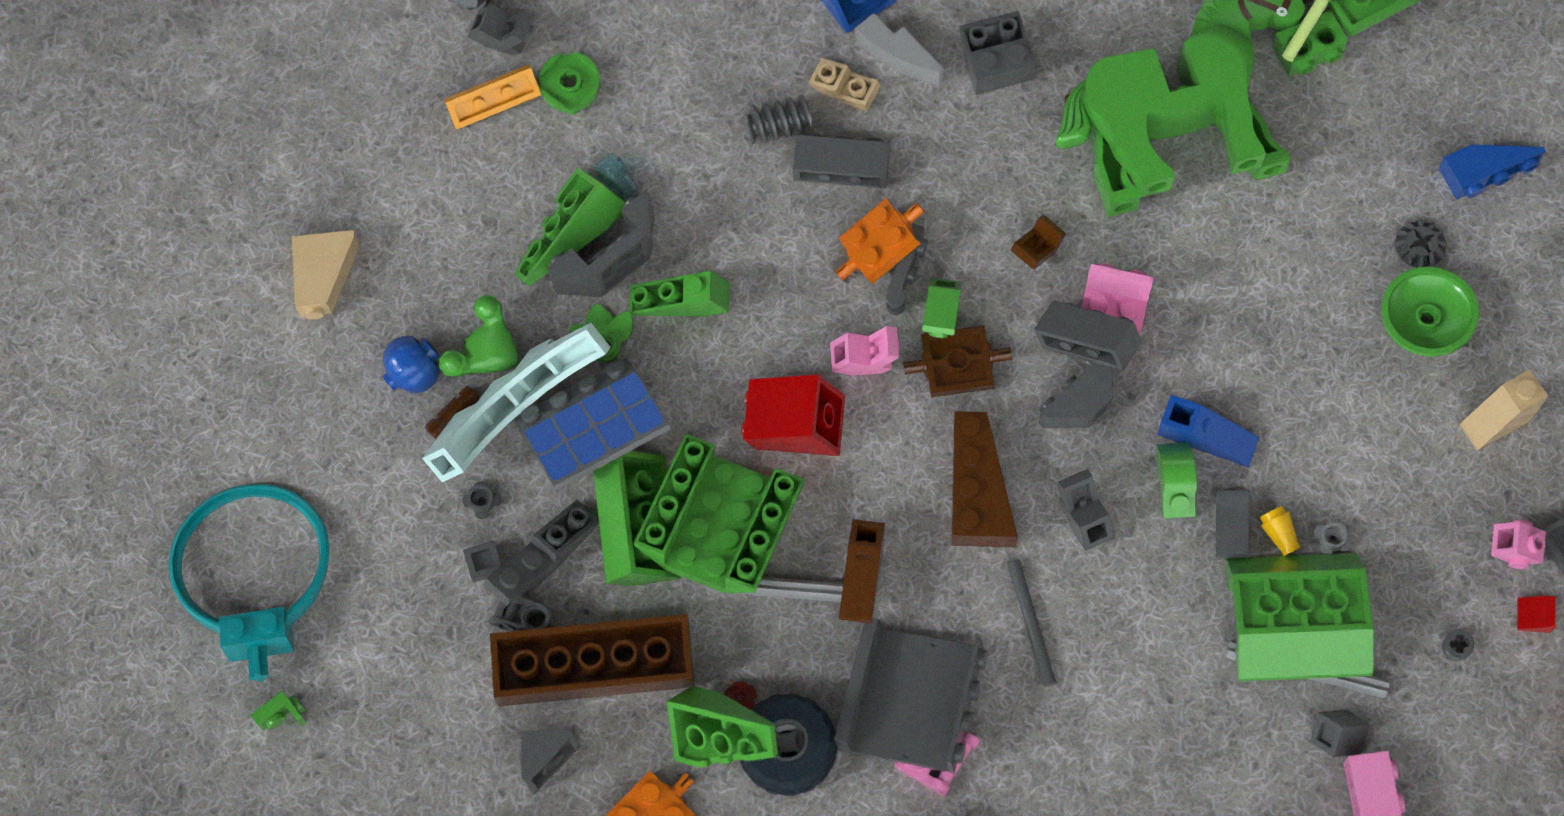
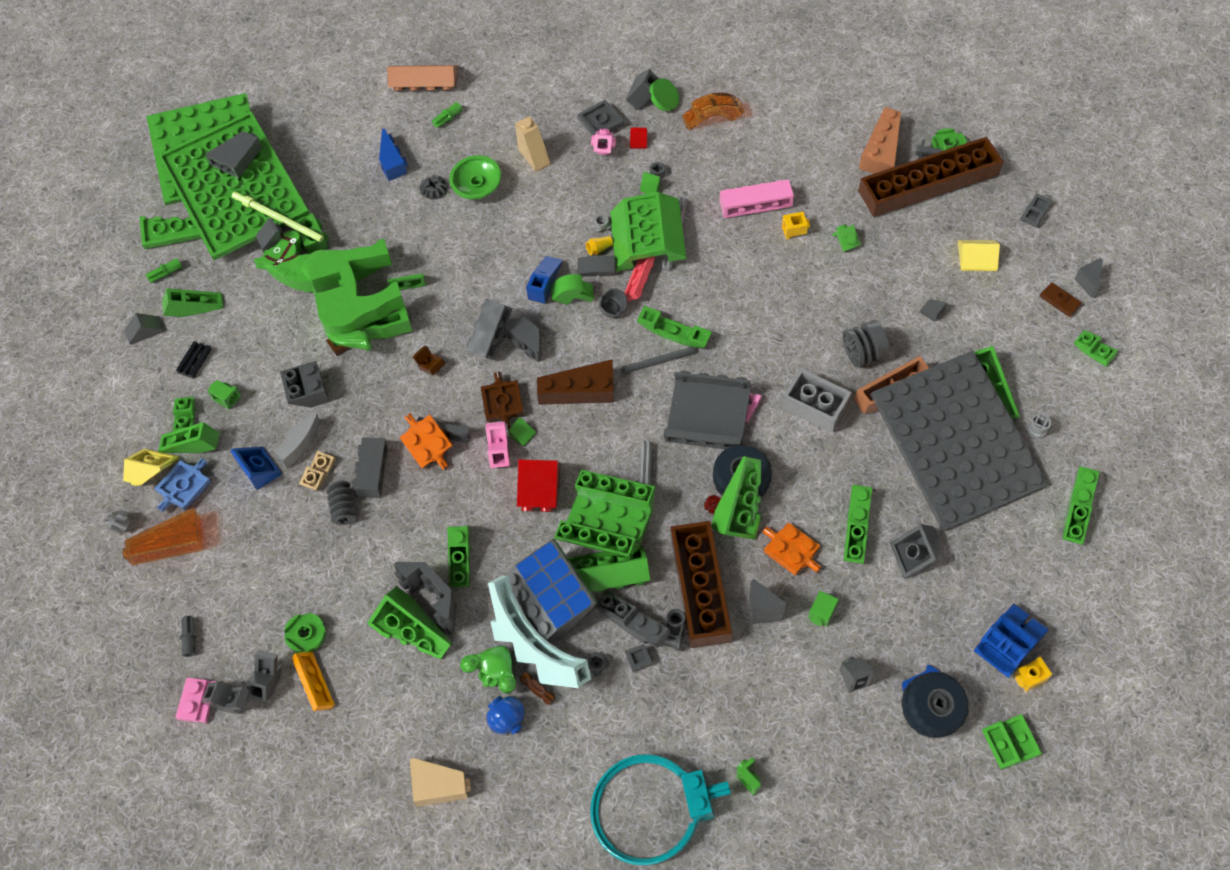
camera: 95 degrees left, 10 degrees down
(613, 330) = (479, 601): bright green plate -> none
(616, 176) = (372, 599): clear light blue cone -> none
(862, 571) = (635, 437): reddish brown slope -> none
(896, 393) = (521, 432): none -> bright green slope
(942, 307) = (471, 404): bright green slope -> none
(1084, 510) = (594, 332): dark grey brick -> none
(1091, 651) = (672, 330): none -> bright green slope
(1118, 292) = (462, 320): bright pink bracket -> none
(1145, 547) = (613, 303): none -> dark grey hair
(1197, 594) = (639, 278): none -> coral plate
(1209, 205) = (409, 282): none -> bright green slope
(1339, 733) = (709, 218): dark grey panel -> none
(1420, 629) = (650, 183): none -> bright green slope

